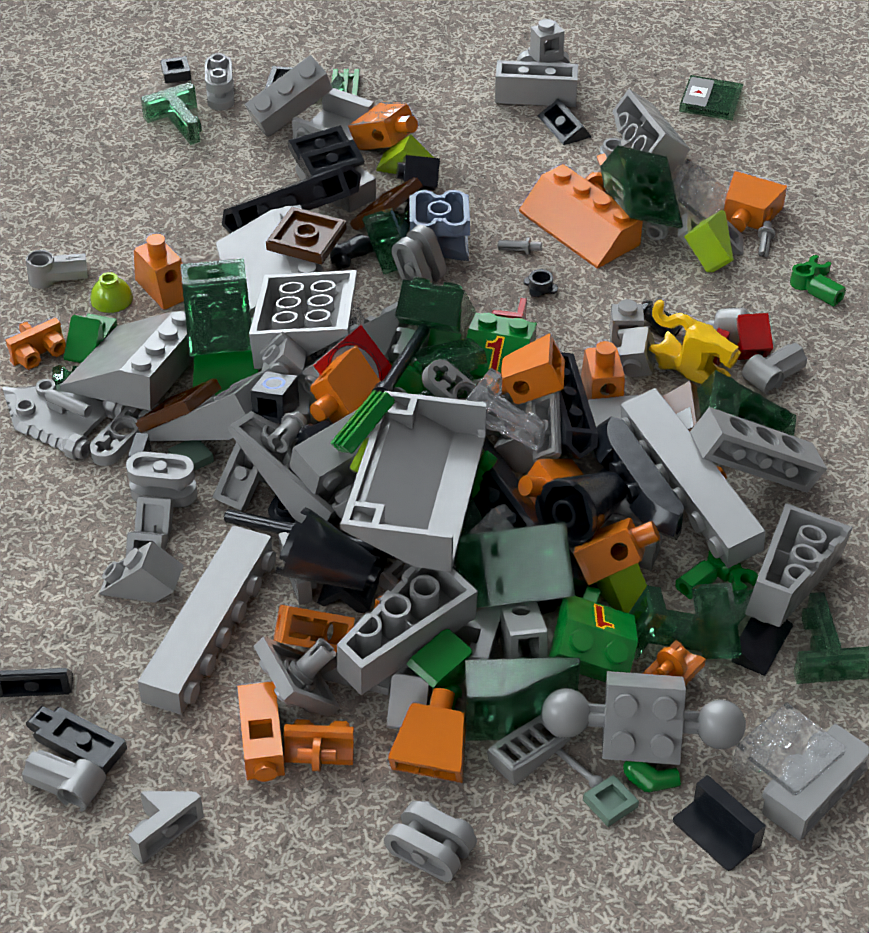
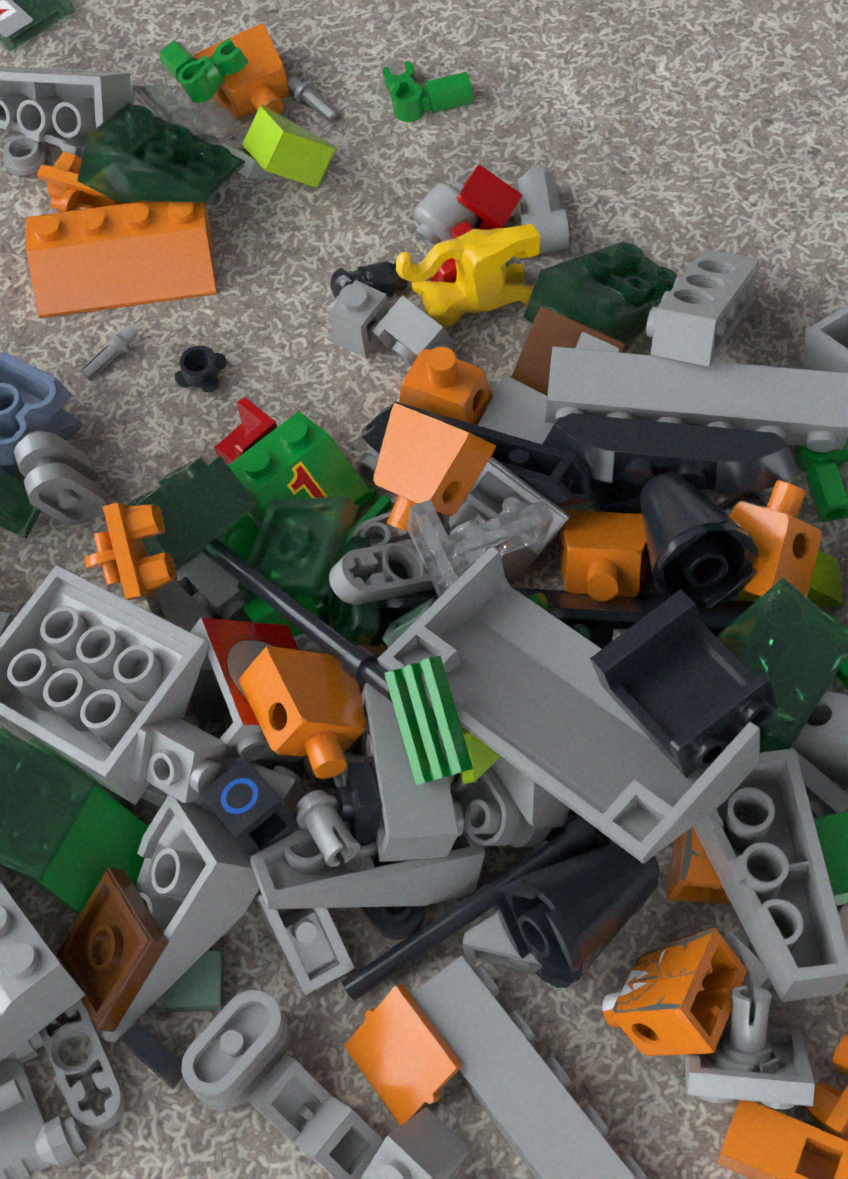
camera: 50 degrees left, 15 degrees up
(206, 543) = (402, 1055): none -> orange piece
(380, 285) = (123, 552): none -> orange hips
(469, 506) = (683, 684): none -> black panel
(723, 178) = (202, 76): none -> green bar

